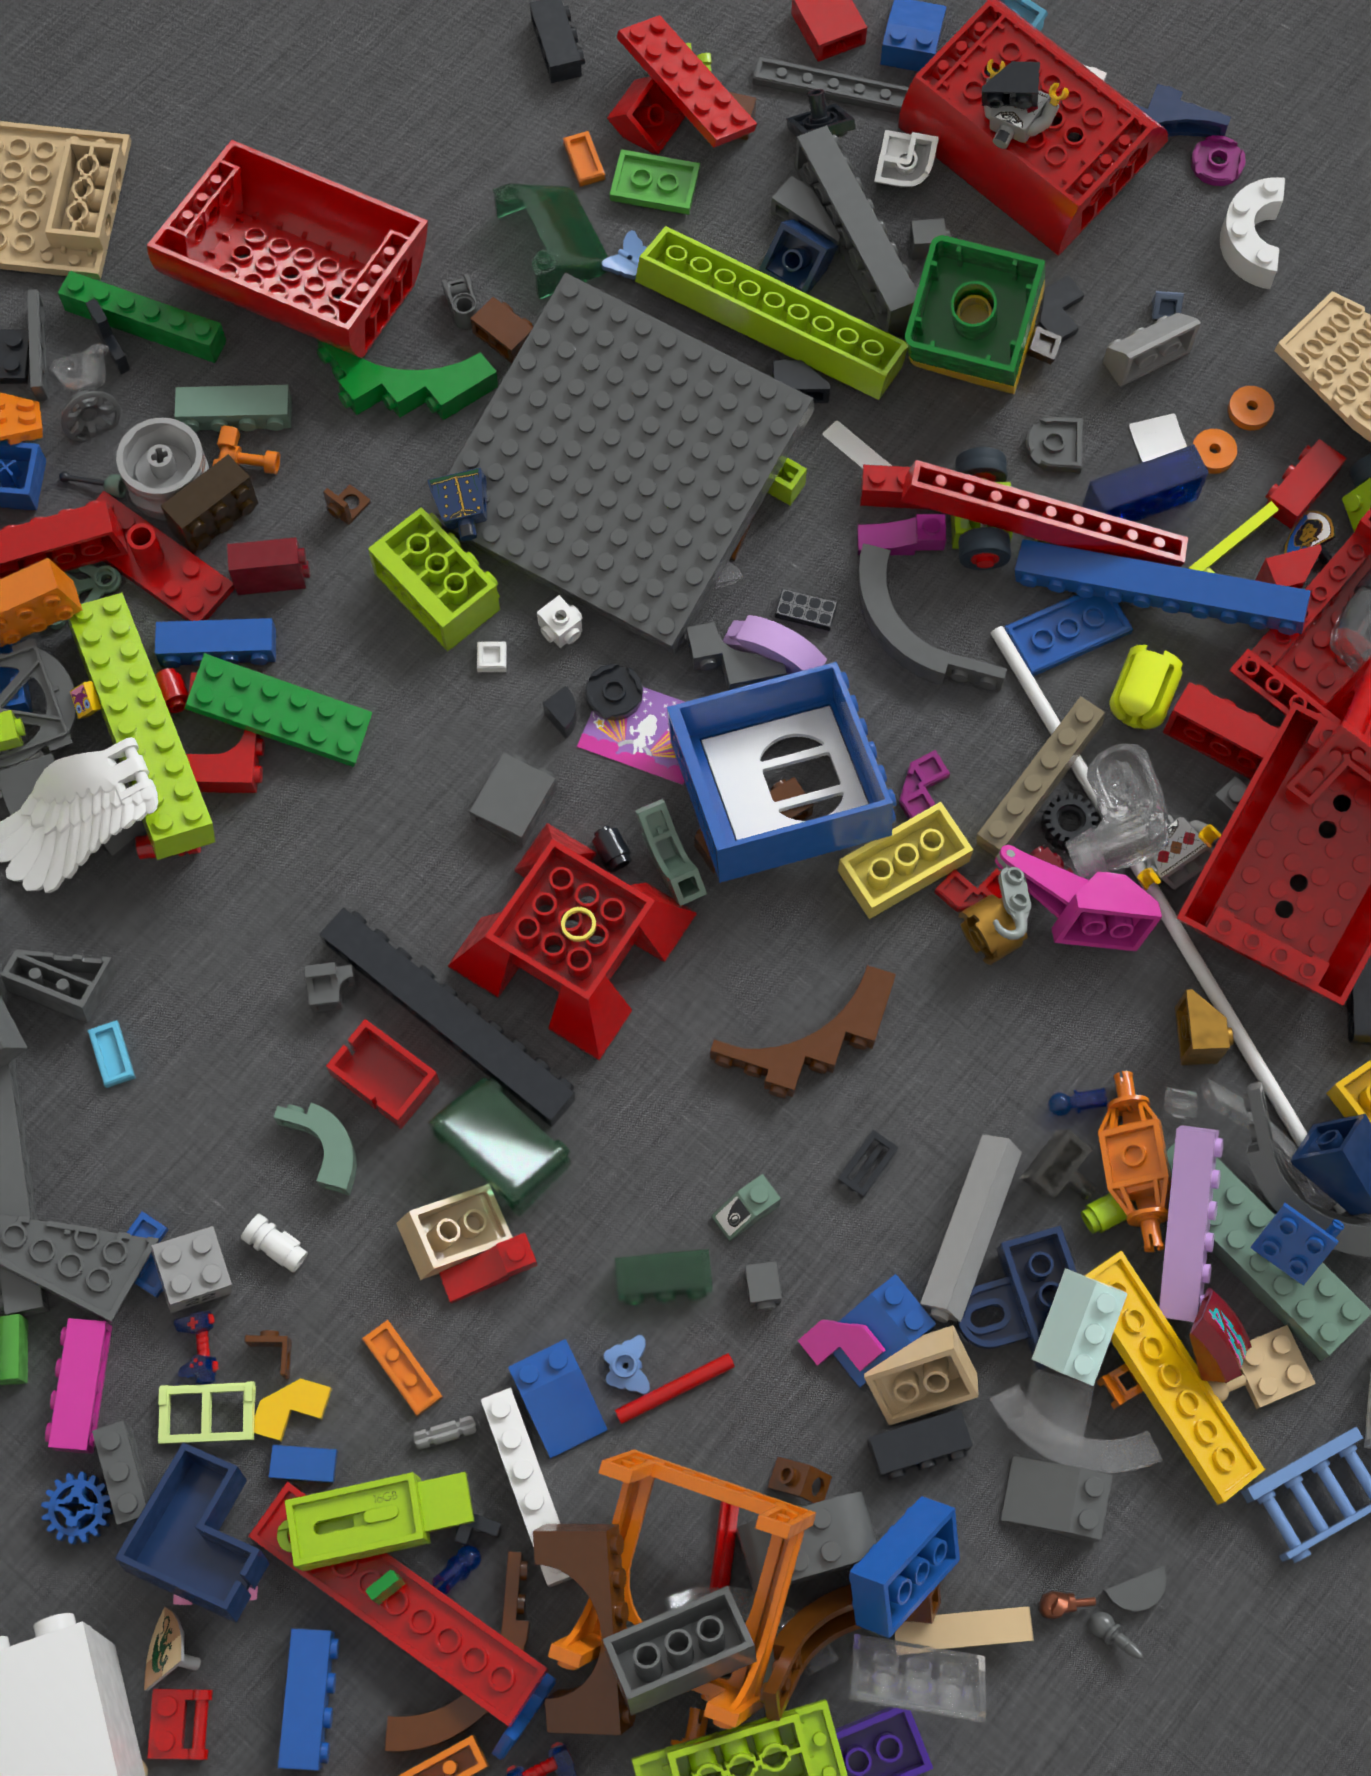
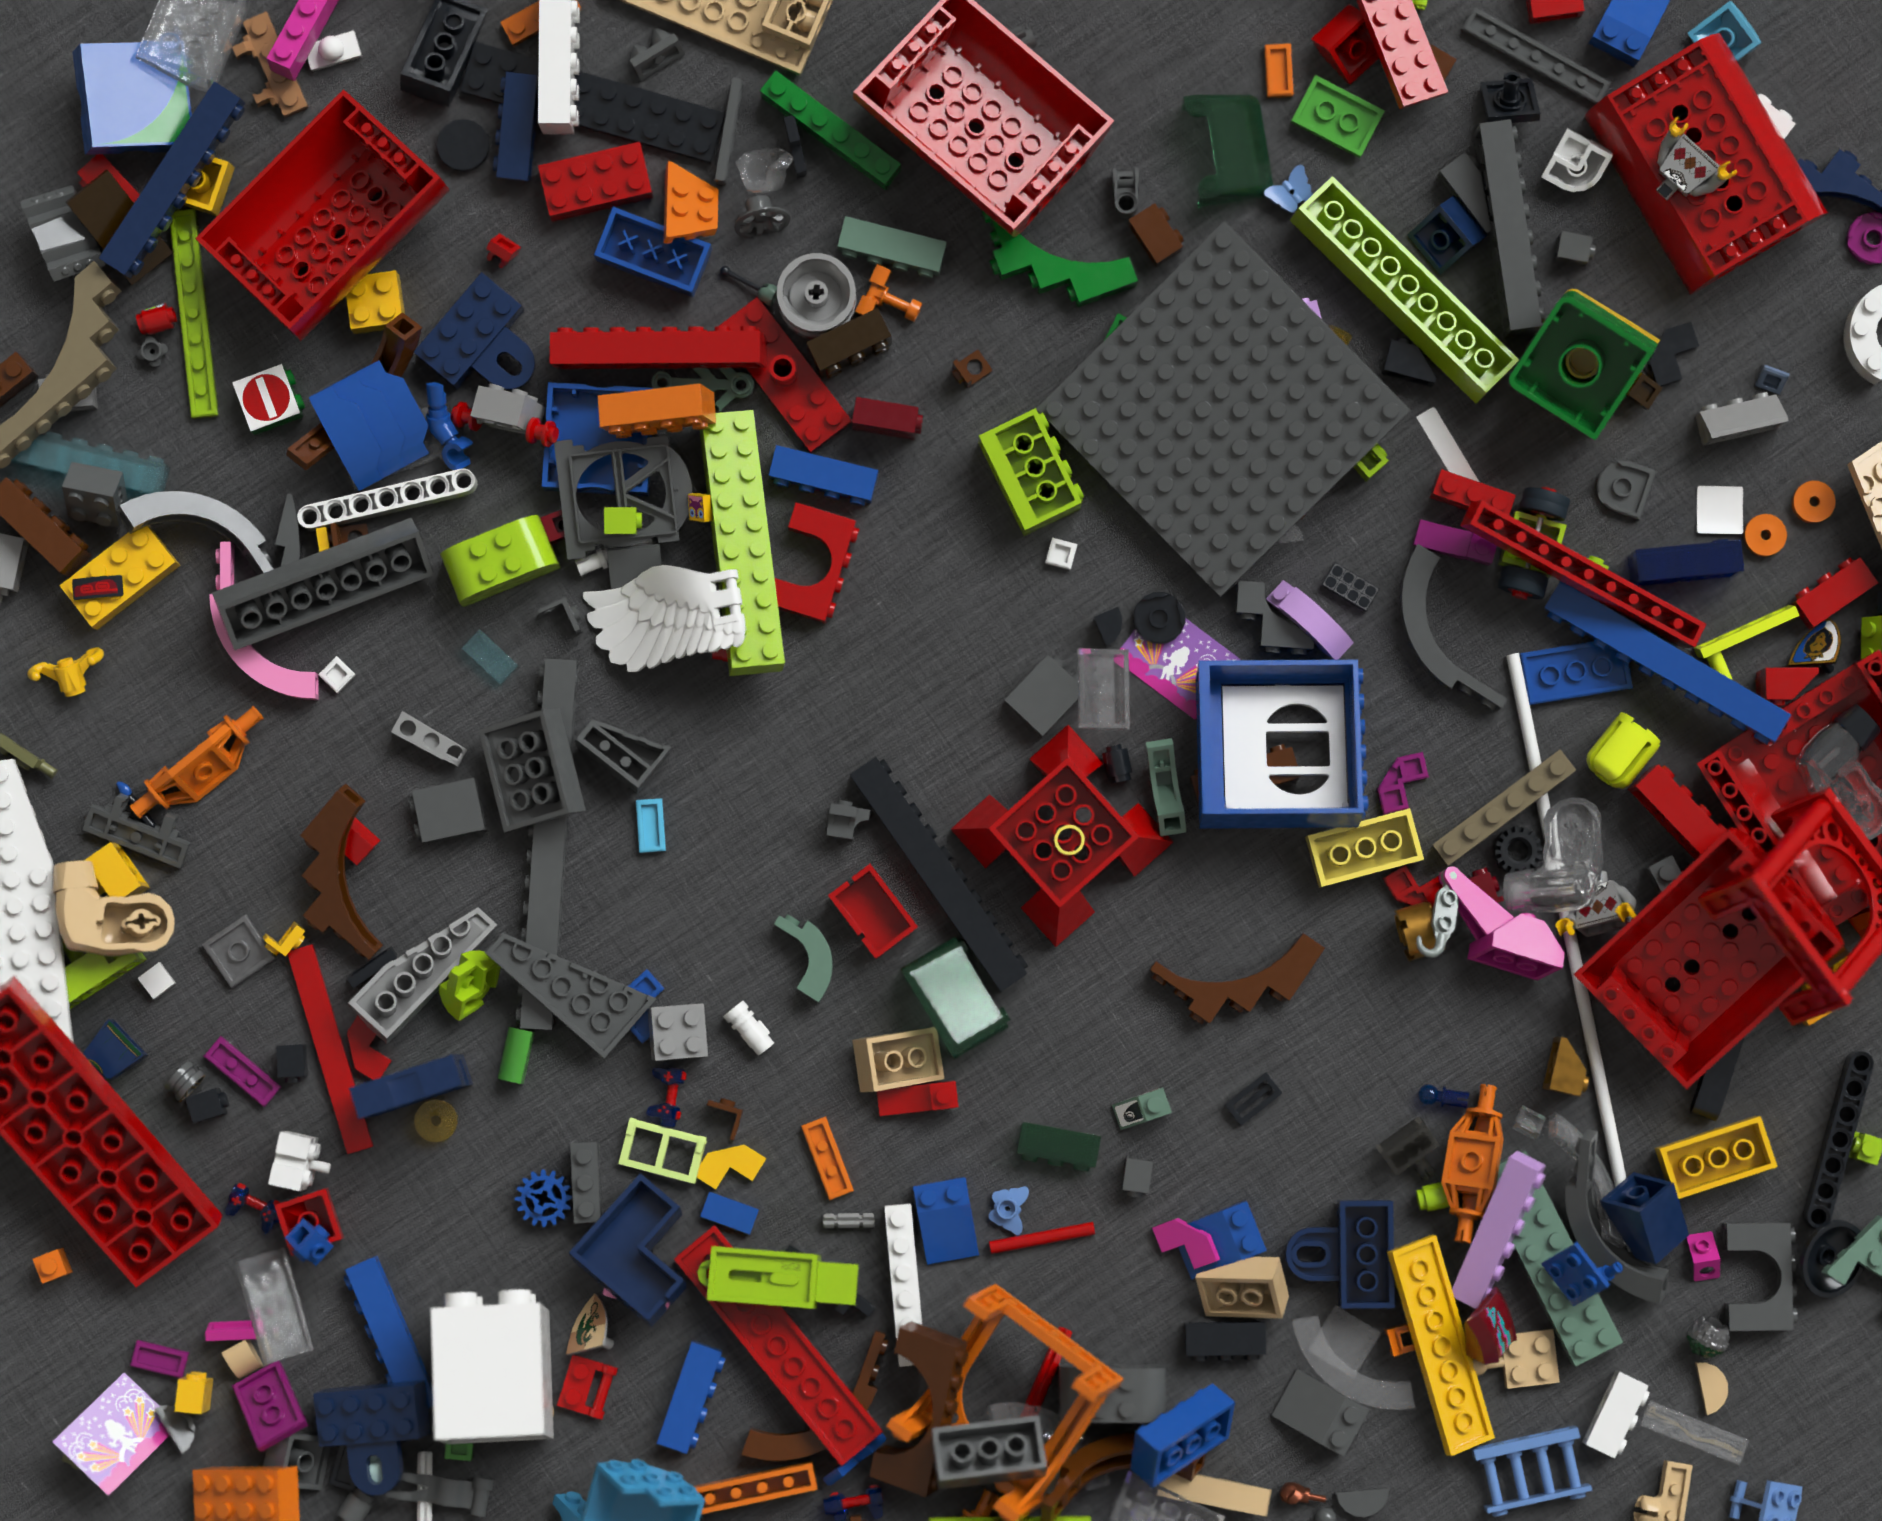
camera: 15 degrees right, 15 degrees up
(79, 1385) = (566, 1100): dark pink brick -> none
(172, 689) = (776, 510): red brick -> none
(278, 710) = (863, 559): green plate -> none
(385, 1587) = (773, 1333): green tile -> none
(458, 1568) = (832, 1332): clear blue pin -> none
(461, 500) = (1072, 413): dark blue torso -> none
(560, 622) = (1132, 533): white brick -> none
(574, 771) = (1103, 689): none -> clear slope
(797, 1479) = (1120, 1339): reddish brown bracket -> none
(970, 1228) = (1320, 1179): light grey brick -> none
(1013, 86) = (1690, 152): black slope -> none
(1079, 1326) = (1379, 1290): light aqua slope -> none

